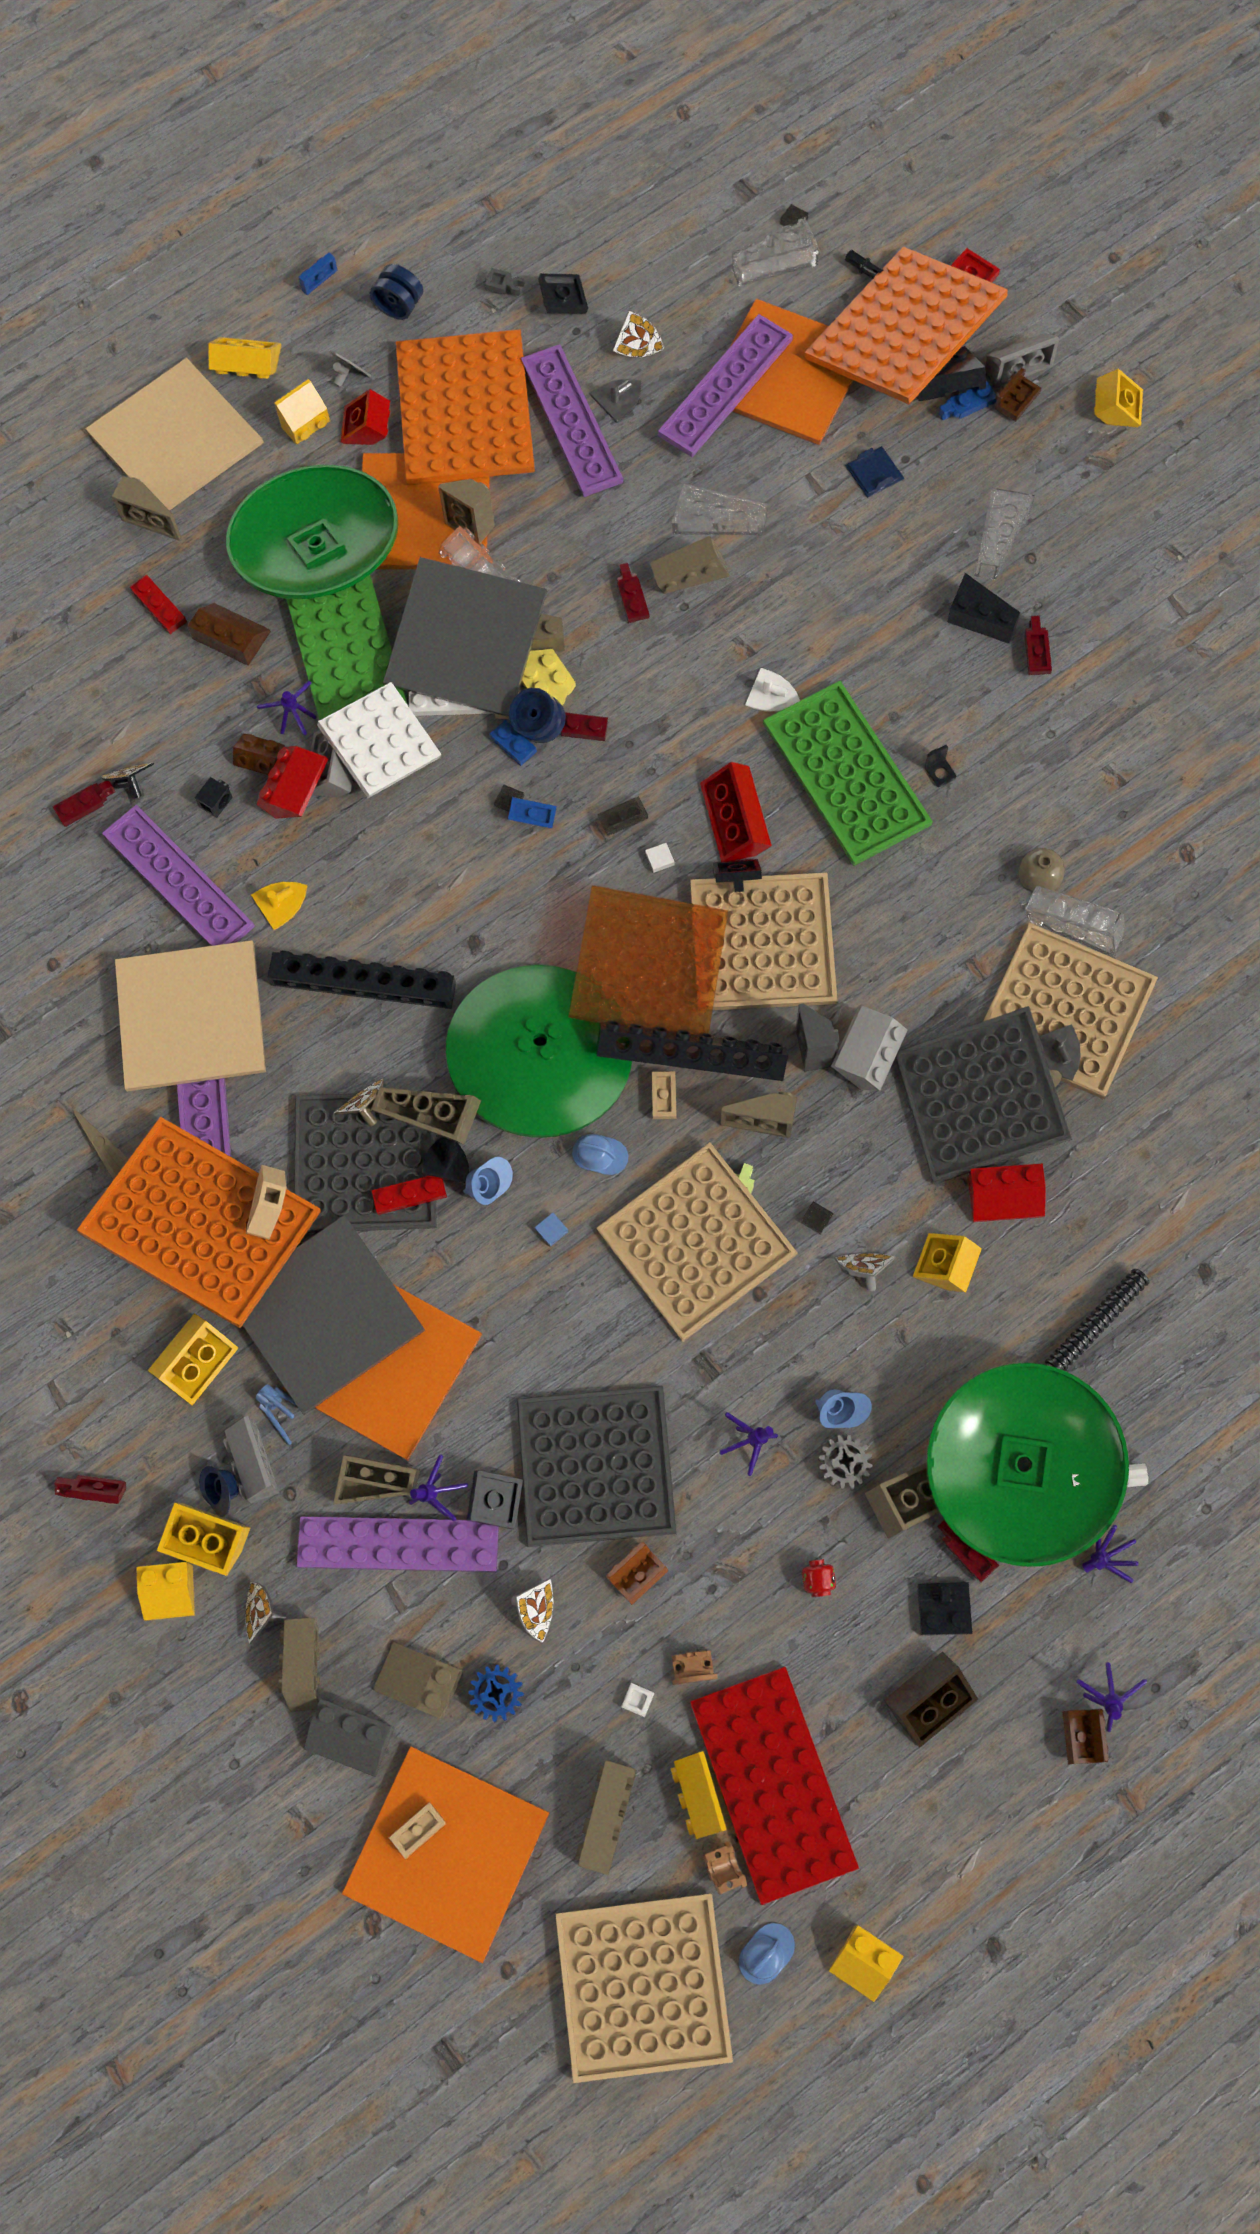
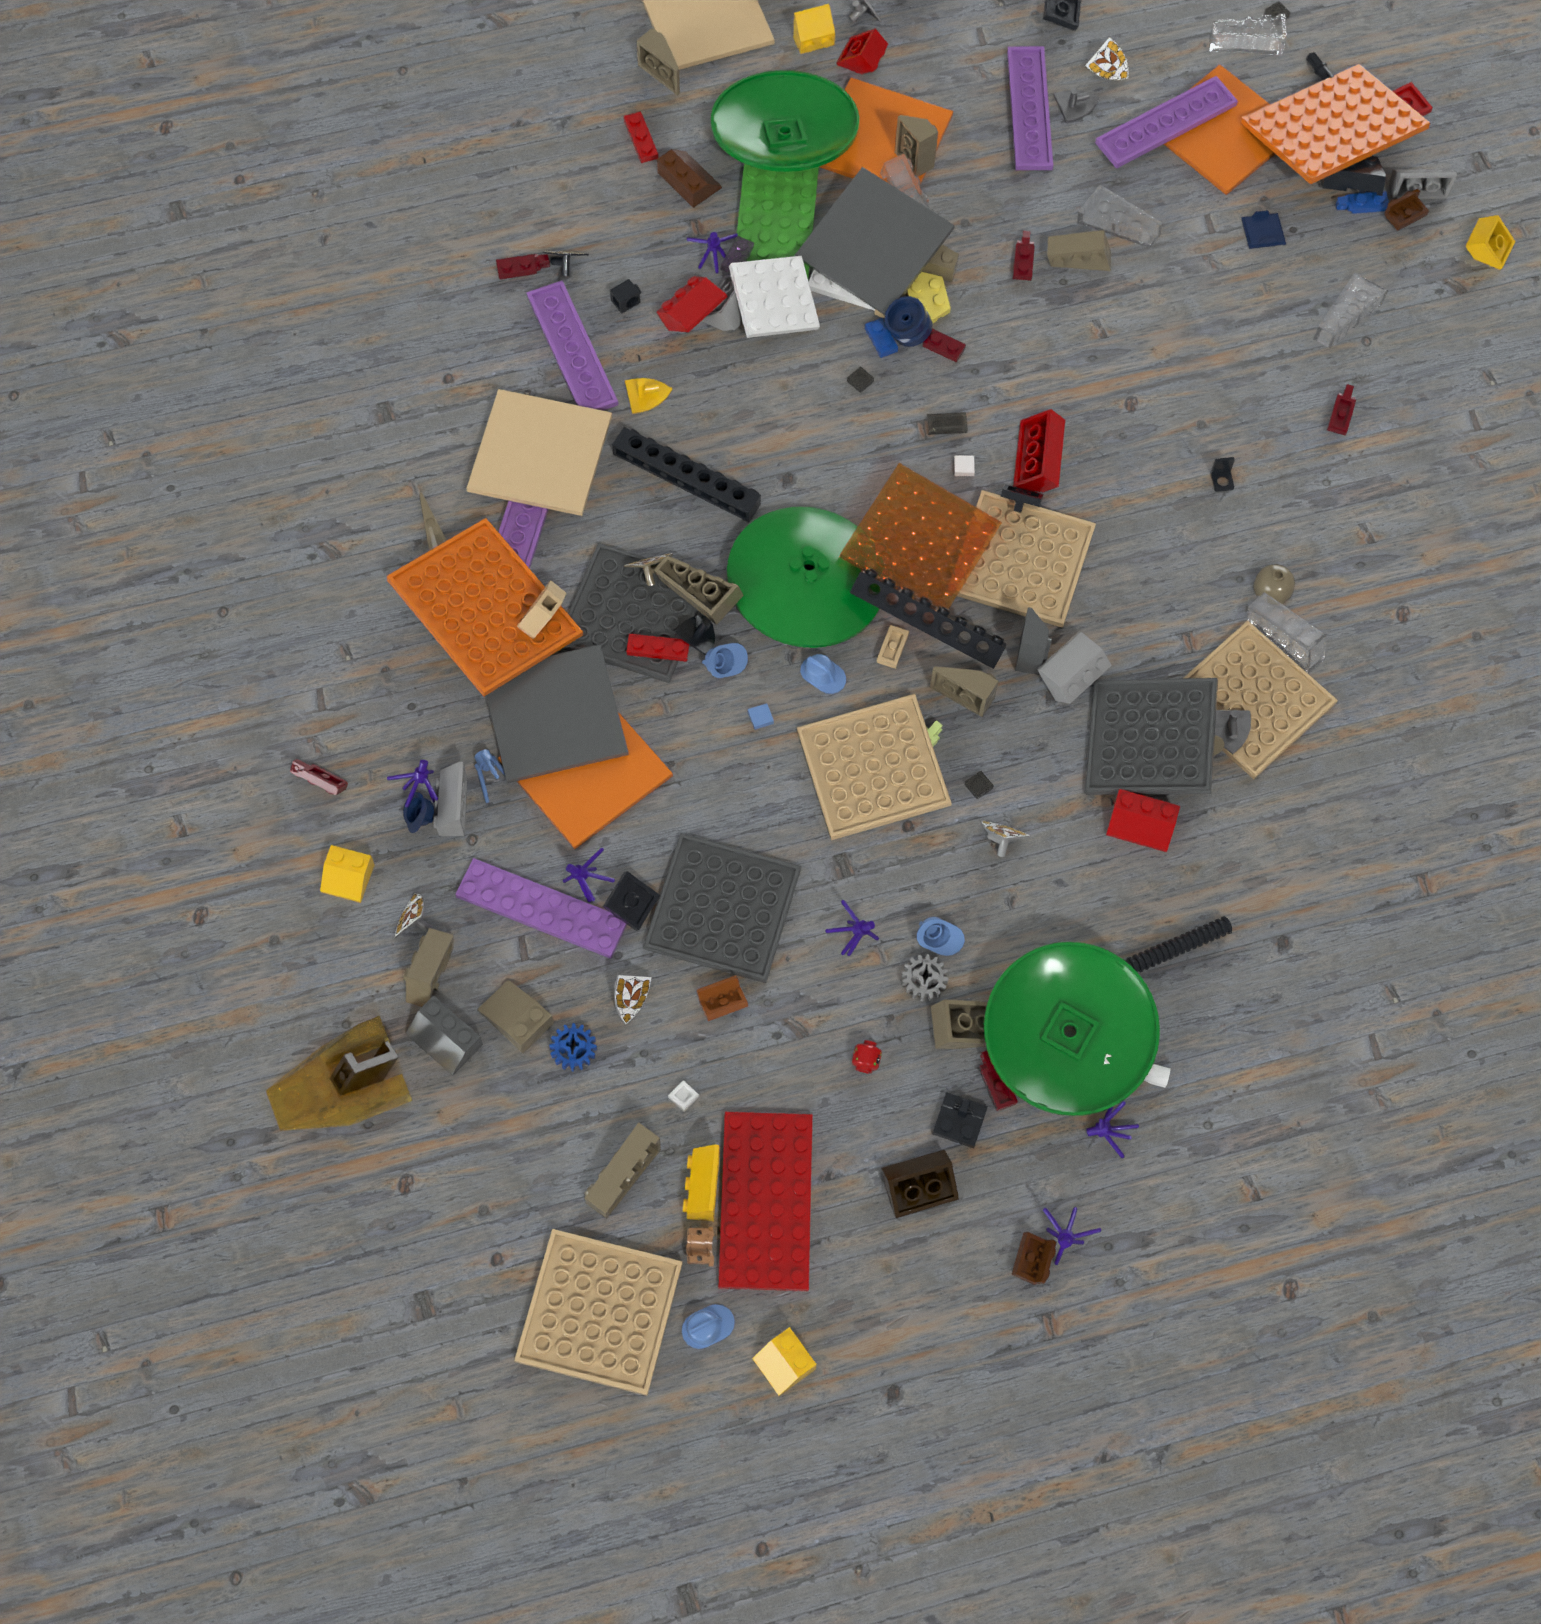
camera: 15 degrees right, 5 degrees down
(193, 1359) = (438, 710): yellow slope -> none
(203, 1538) = (391, 844): yellow slope -> none
(204, 1448) = (420, 776): none -> dark purple plant
(240, 1849) = (309, 1099): none -> clear yellow wedge
(256, 753) = (671, 274): reddish brown bracket -> none
(264, 1833) = (353, 1075): none -> dark brown panel
(319, 703) = (738, 252): none -> clear purple plate
(371, 1479) = (540, 850): dark tan wedge -> none
(417, 1830) = (469, 1124): tan plate -> none
(464, 407) = (947, 68): orange plate -> none
(465, 1872) = (484, 1153): orange tile -> none
(532, 812) = (874, 394): blue plate -> none
(693, 1668) = (738, 1087): medium nougat piece -> none
(771, 693) = (1108, 372): white shield -> none
(847, 773) = (1144, 453): bright green plate -> none
(947, 1261) = (1072, 855): yellow slope -> none
(982, 611) = (1307, 367): black wedge -> none

